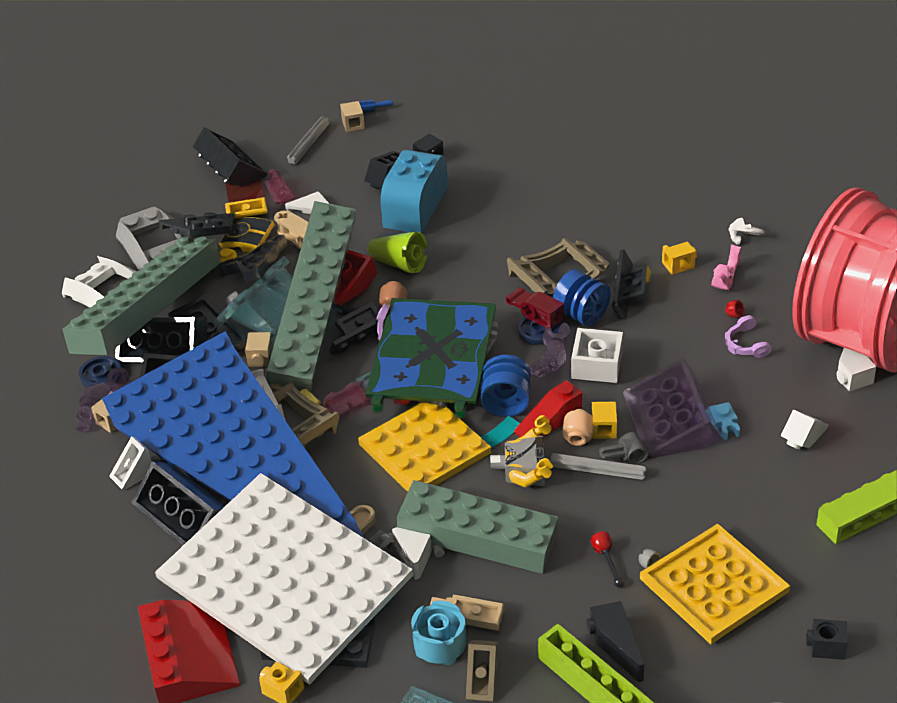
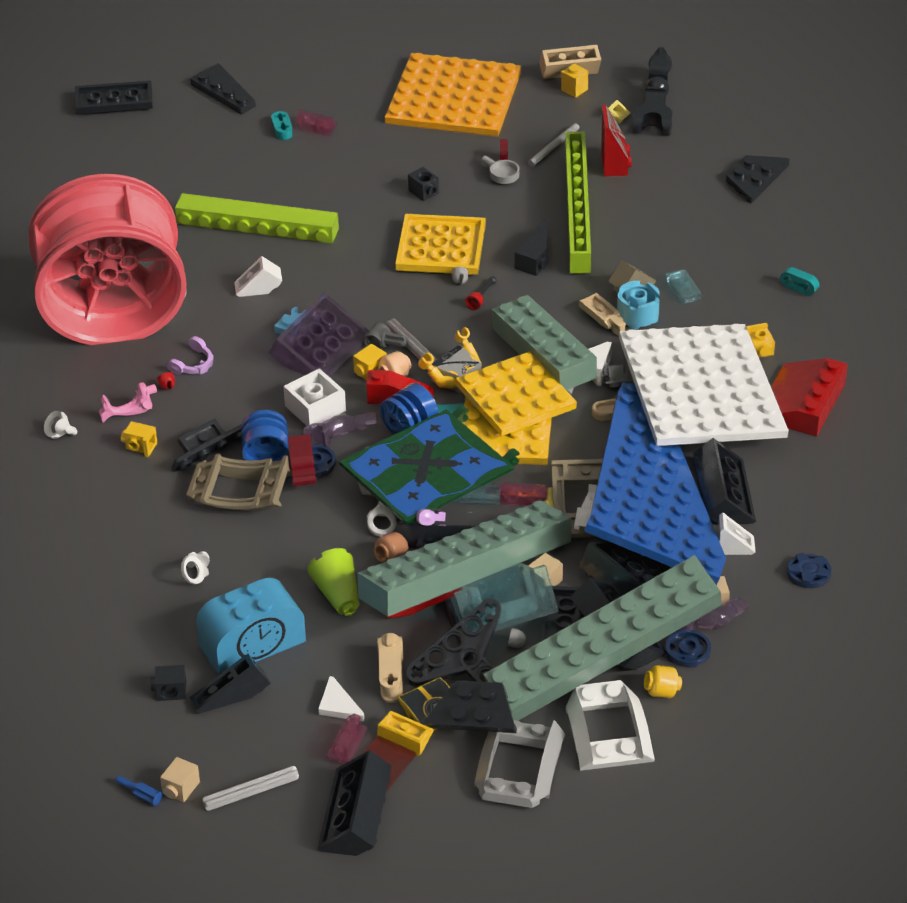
camera: 140 degrees left, 0 degrees up
(49, 485) = (809, 567): none -> dark blue wheel
(442, 455) = (515, 393): none -> yellow plate
(513, 213) = (199, 560): none -> white piece

